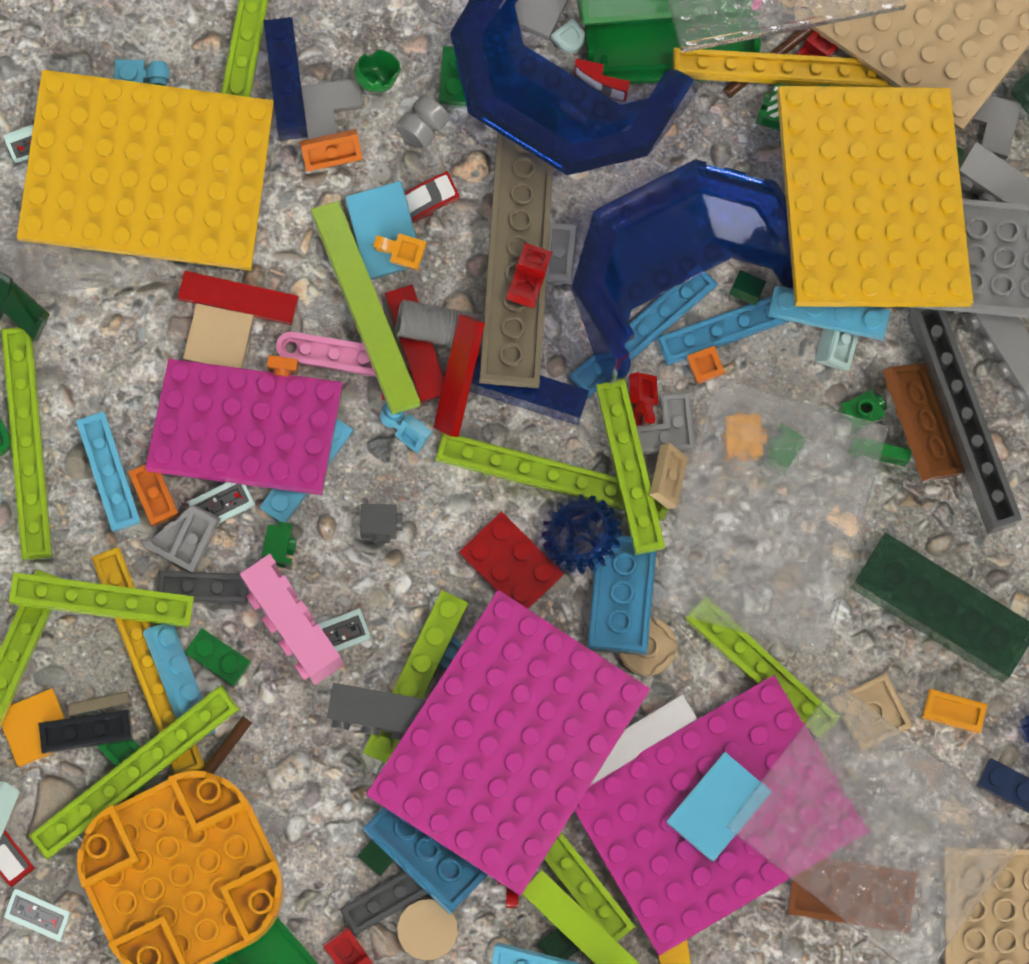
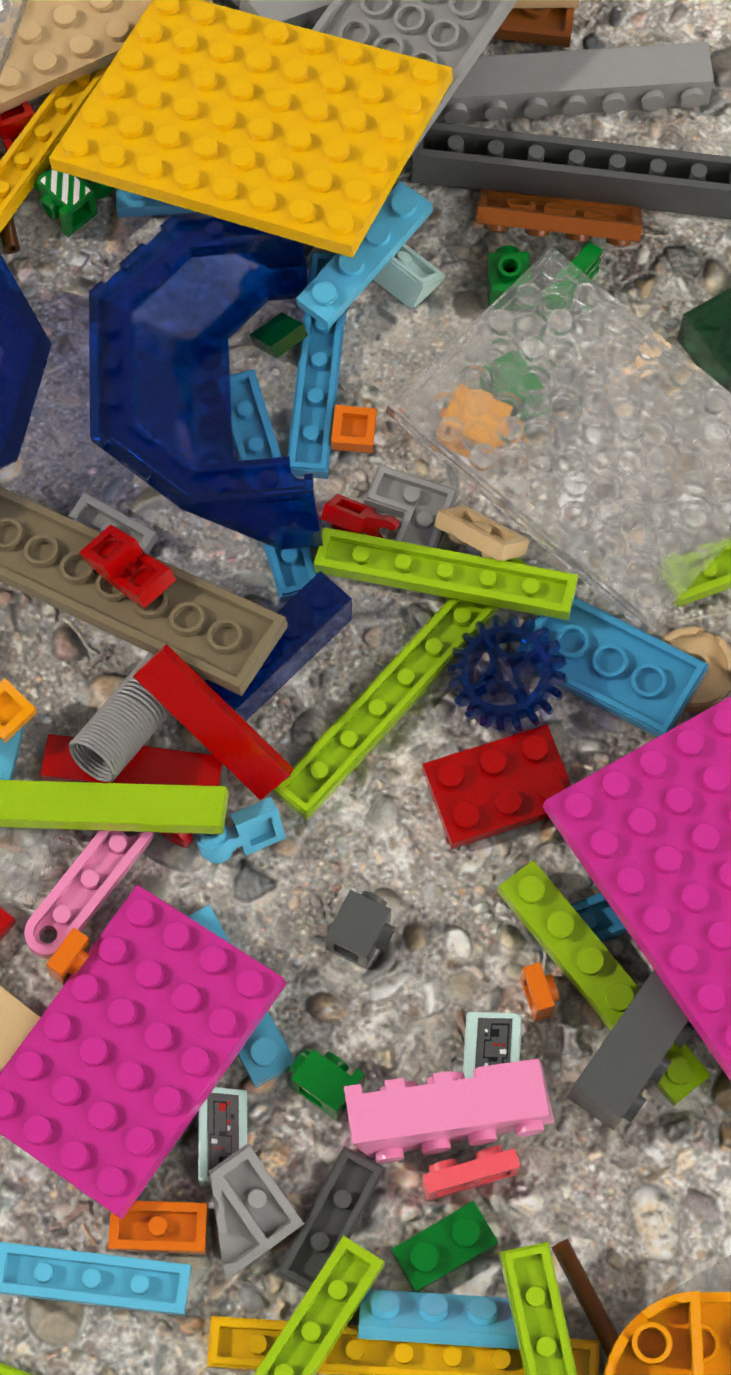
camera: 60 degrees left, 10 degrees down
(257, 641) = (488, 1167): none -> coral plate
(391, 643) = (539, 991): none -> orange plate

